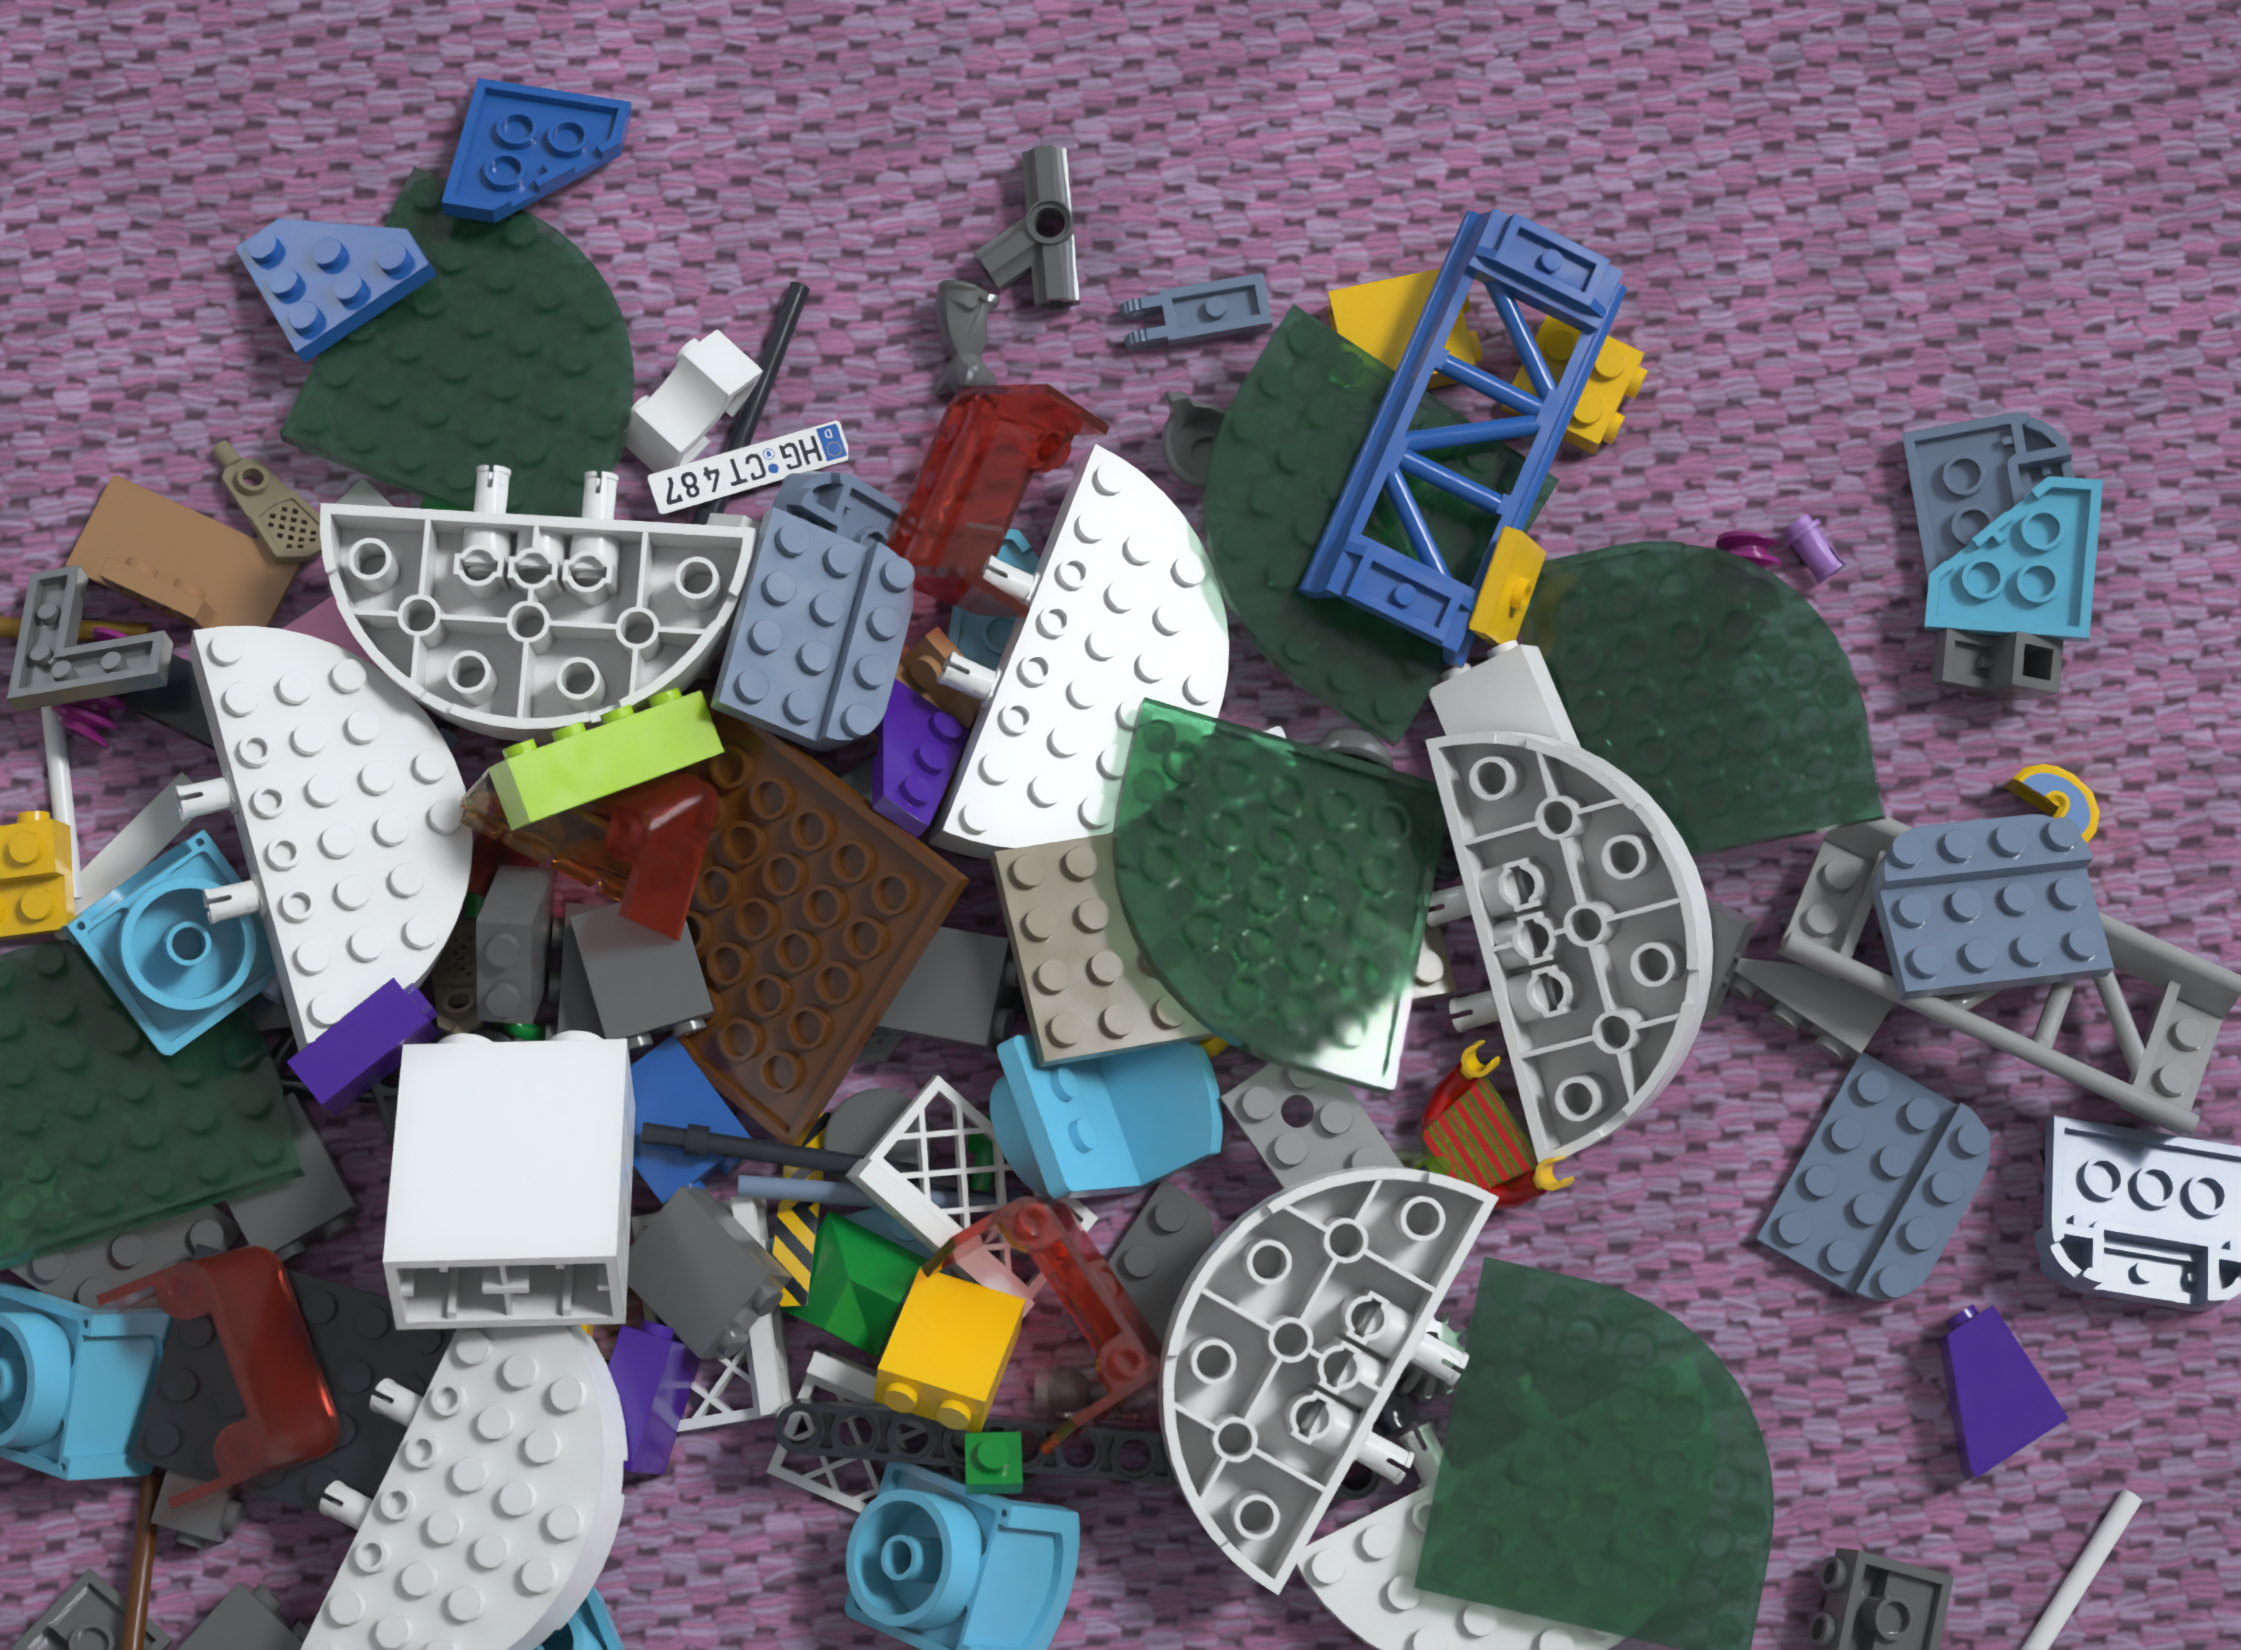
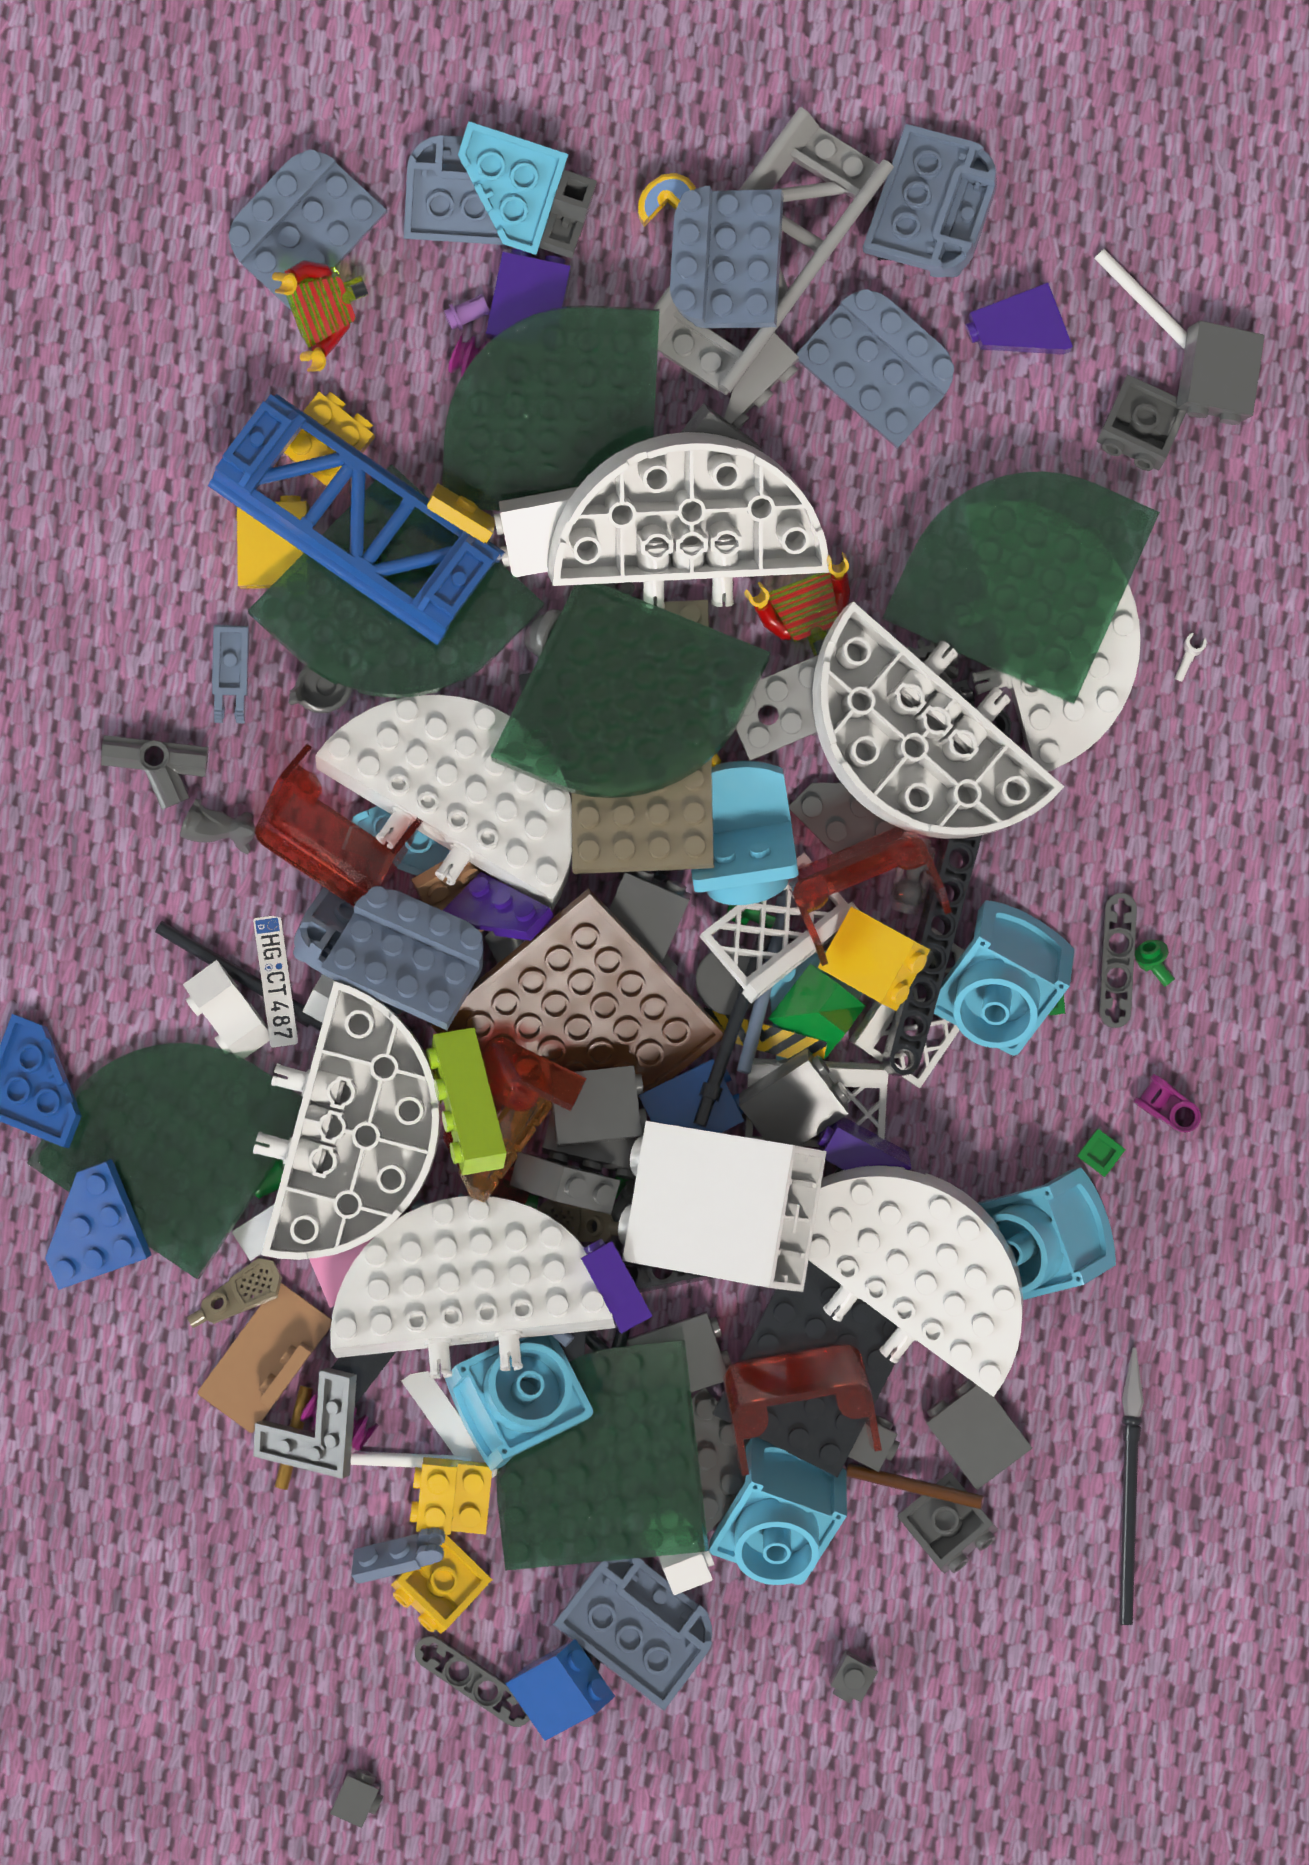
camera: 80 degrees left, 10 degrees up
(993, 1463) = (949, 944): green plate -> none
(1773, 326) = (319, 306): none -> torso
(1875, 626) = (526, 288): none -> dark purple brick
(1886, 285) = (302, 214): none -> sand blue plate

